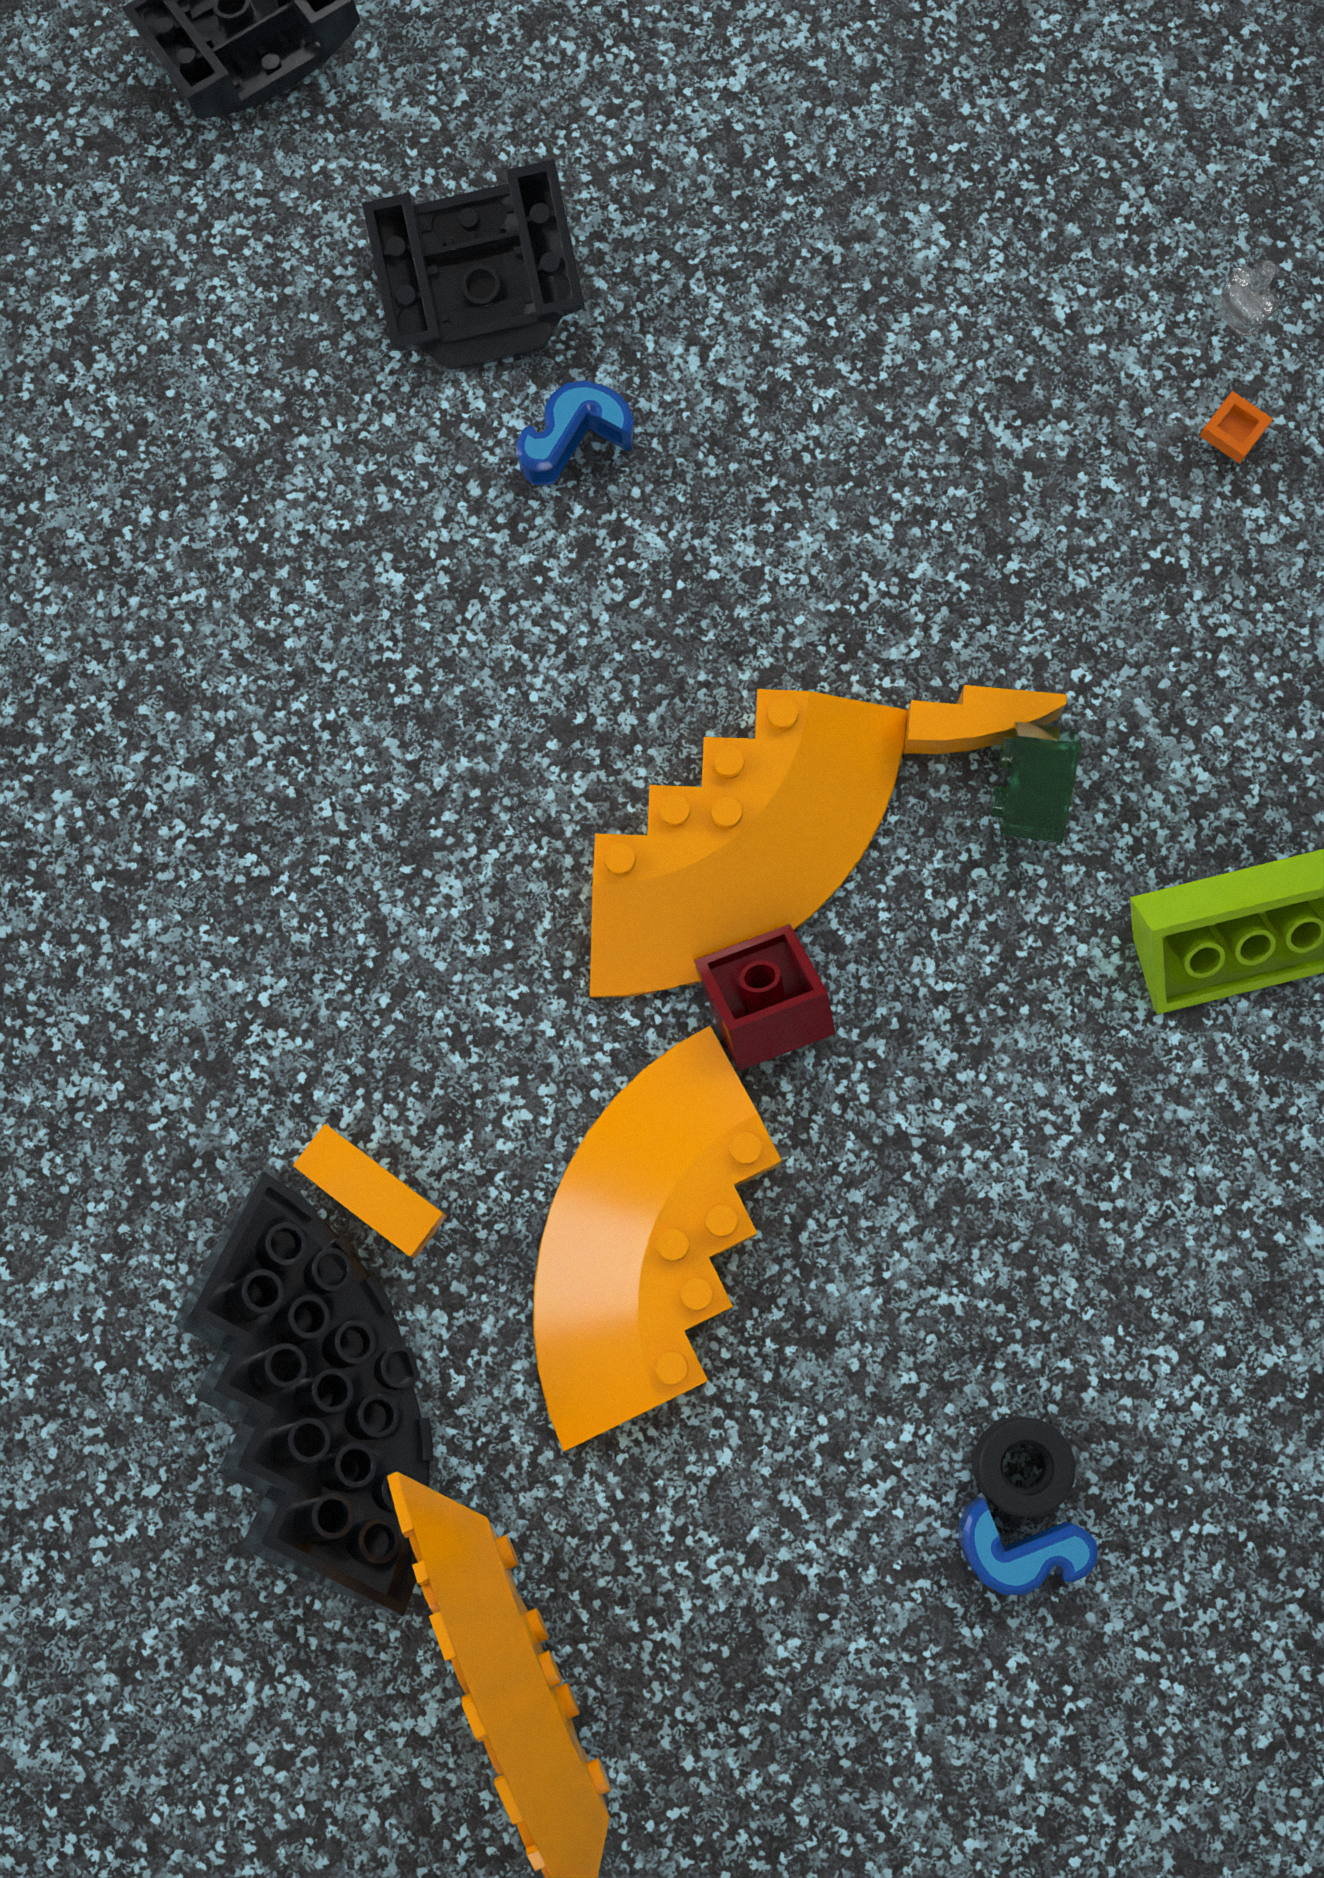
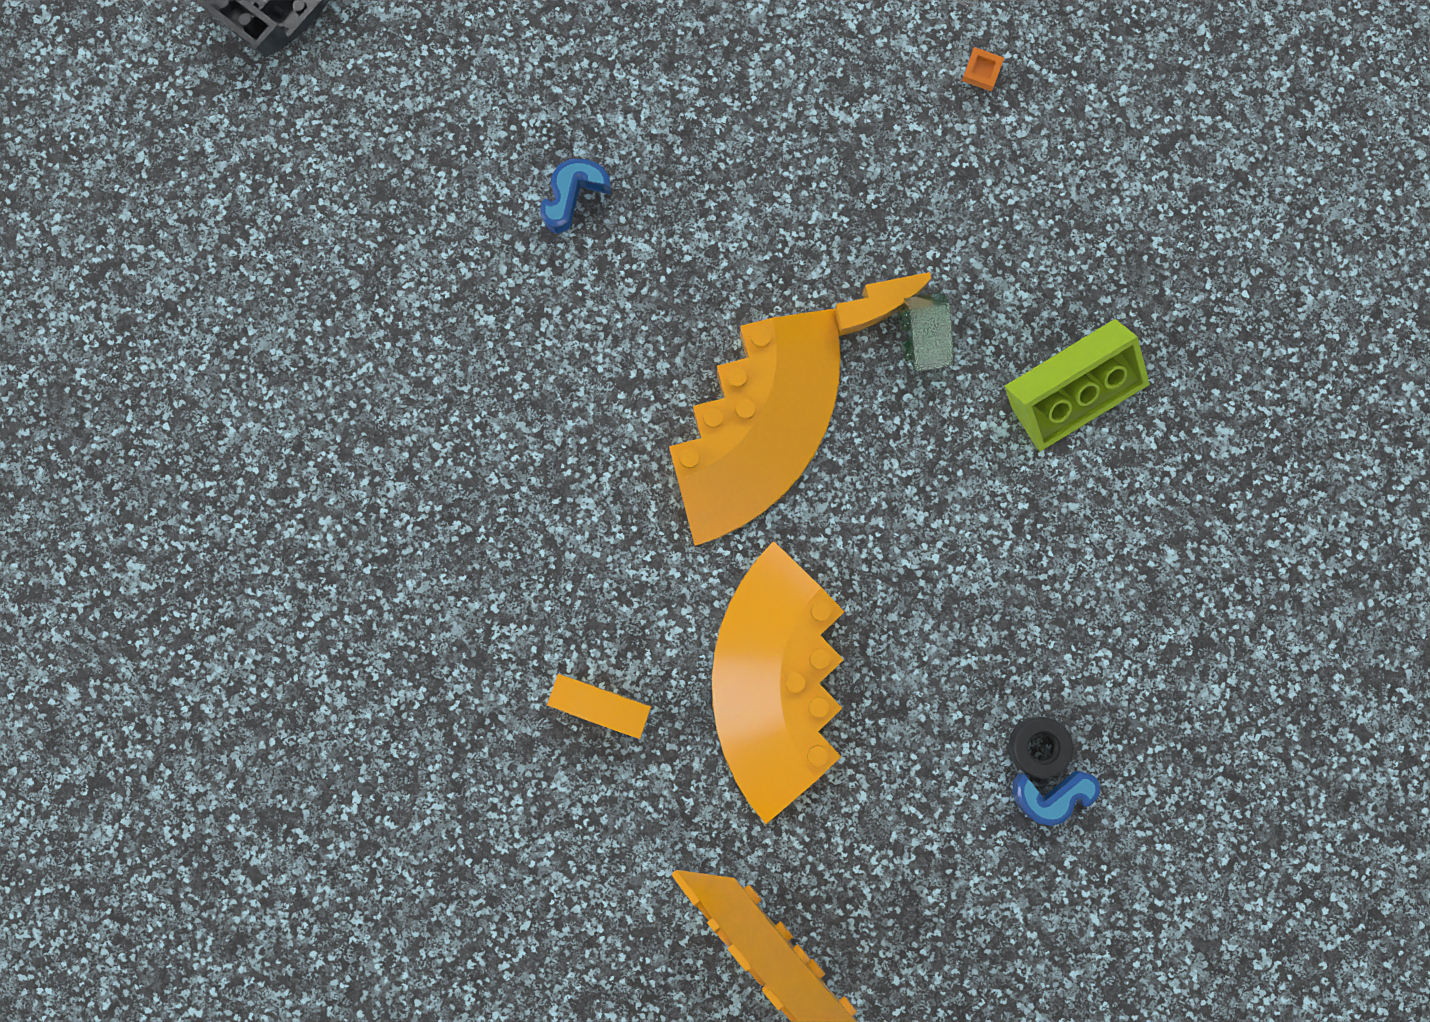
camera: 25 degrees left, 5 degrees up
(314, 1382) = (609, 836): black brick -> none
(476, 269) = (477, 104): black slope -> none
(765, 997) = (802, 514): dark red slope -> none

